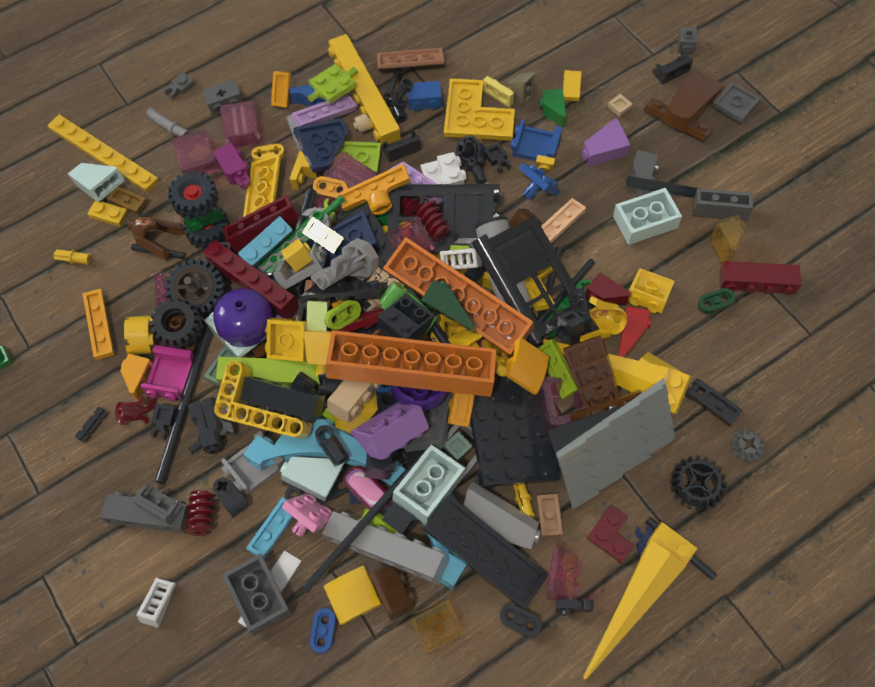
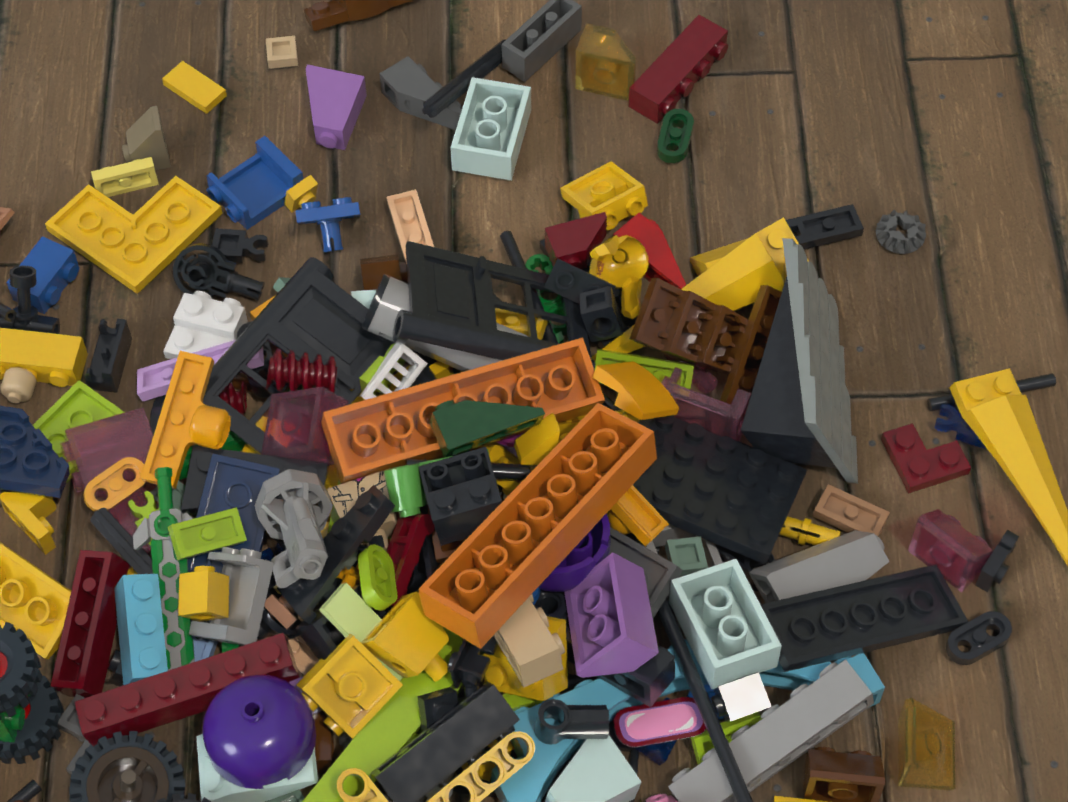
camera: 60 degrees left, 5 degrees down
(553, 106) = (214, 127): green slope -> none
(710, 473) = (913, 311): black gear -> none

